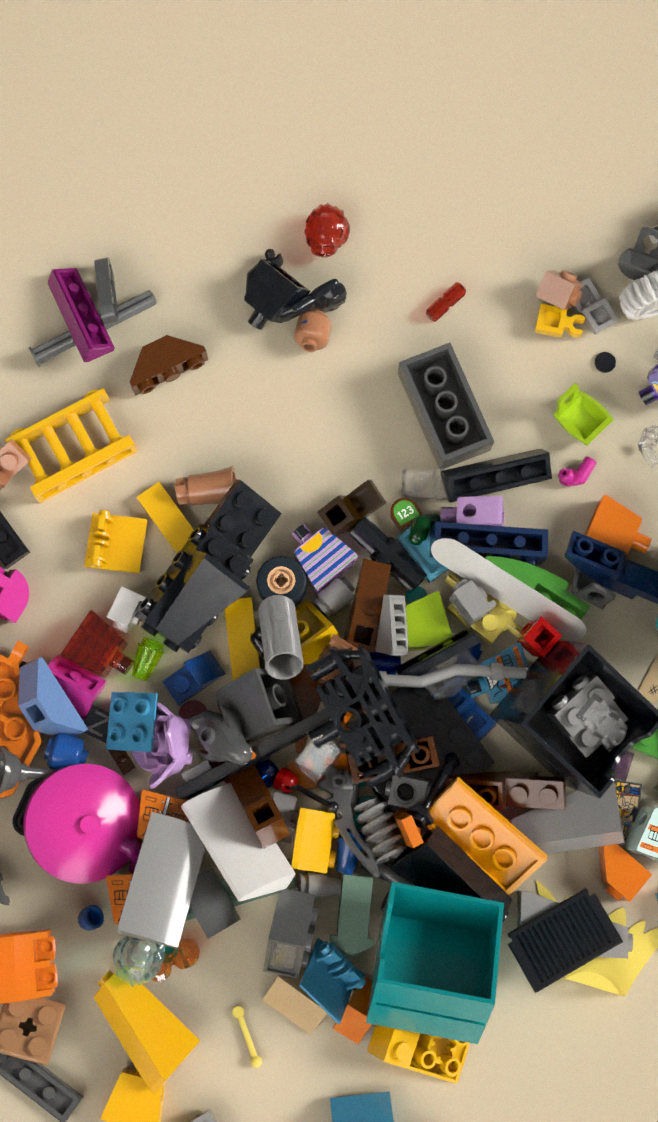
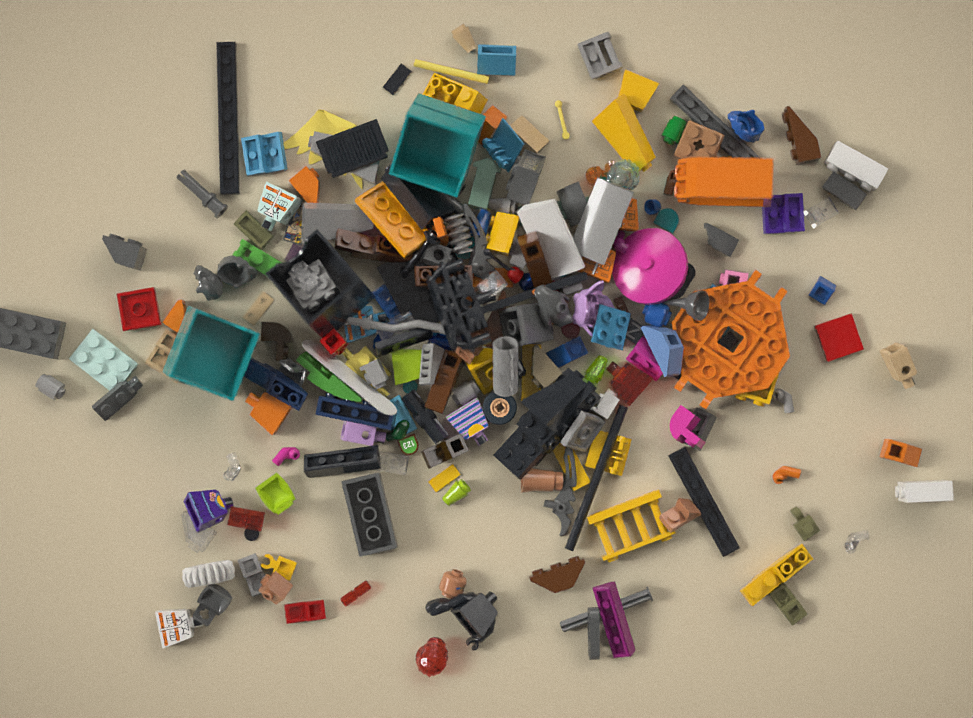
camera: 165 degrees left, 10 degrees up
(66, 901) = (667, 219): none -> teal piece
(66, 961) = (670, 183): none -> reddish brown arm
(70, 1045) = (674, 130): none -> green brick
(127, 505) = (596, 477): none -> black piece
(154, 562) = (583, 431): none -> light grey plate
(174, 461) = (561, 505): none -> dark grey piece
(224, 644) = (543, 368): none -> dark tan slope
(325, 456) = (457, 492): none -> lime cone
(346, 475) = (444, 478): none -> yellow window
(430, 1089) = (451, 71): none -> light yellow bar
(512, 270) = (304, 611): none -> red slope
(512, 1063) = (397, 79): none -> black window
(617, 376) = (246, 518): none -> clear red hips
(622, 642) = (277, 333): none -> dark brown brick

